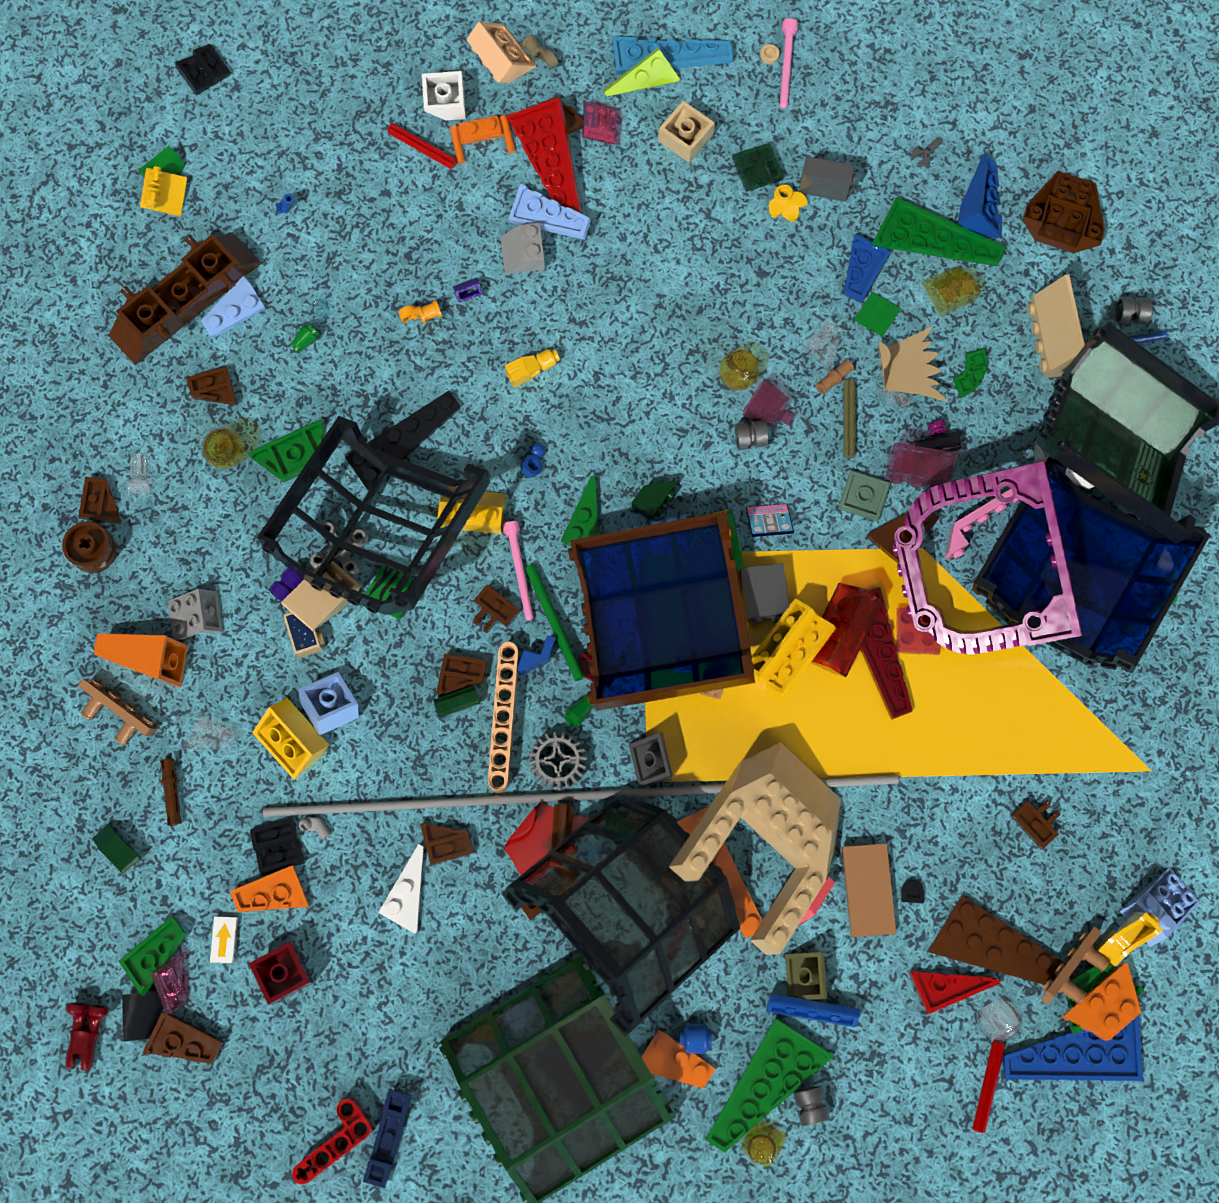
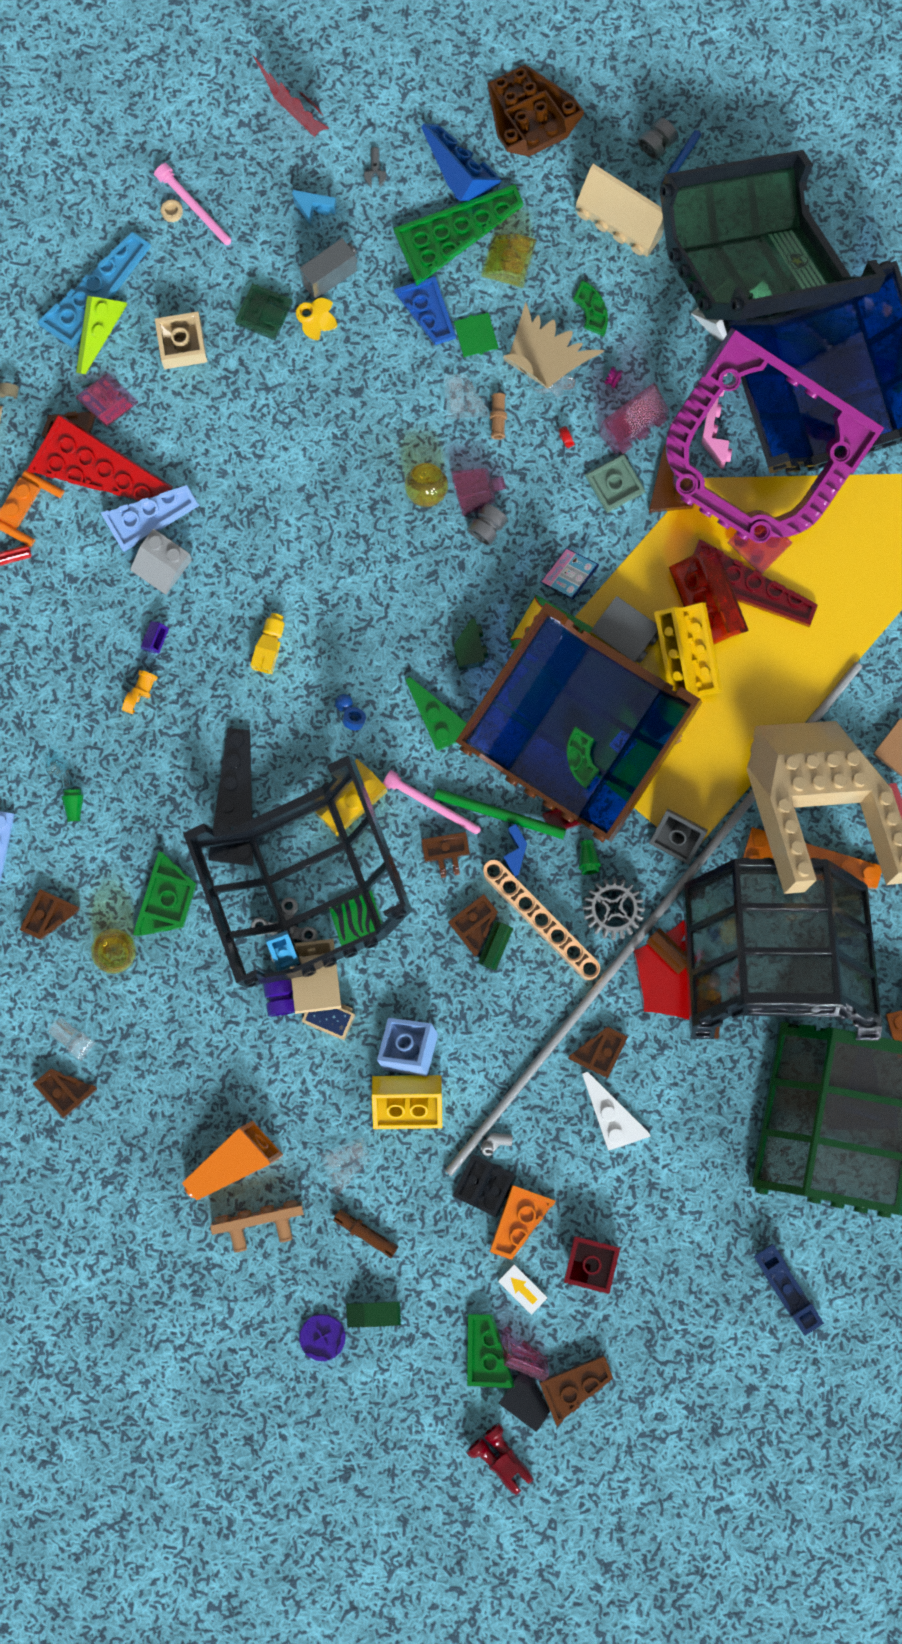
camera: 45 degrees left, 5 degrees up
(70, 827) = (322, 1337): none -> dark purple tile
(89, 547) = (85, 1130): reddish brown wheel -> none
(195, 613) = (233, 1093): light grey bracket -> none
(314, 552) = (282, 950): none -> dark azure slope
(331, 1146) = (755, 1338): red beam -> none
(642, 638) = (579, 757): none -> green tile
(849, 419) = (542, 436): olive axle -> none
(862, 132) = (309, 202): none -> dark azure slope
(864, 433) = (566, 437): none -> red tile
(913, 59) = (293, 105): none -> piece
(946, 442) = (628, 387): black axle -> none

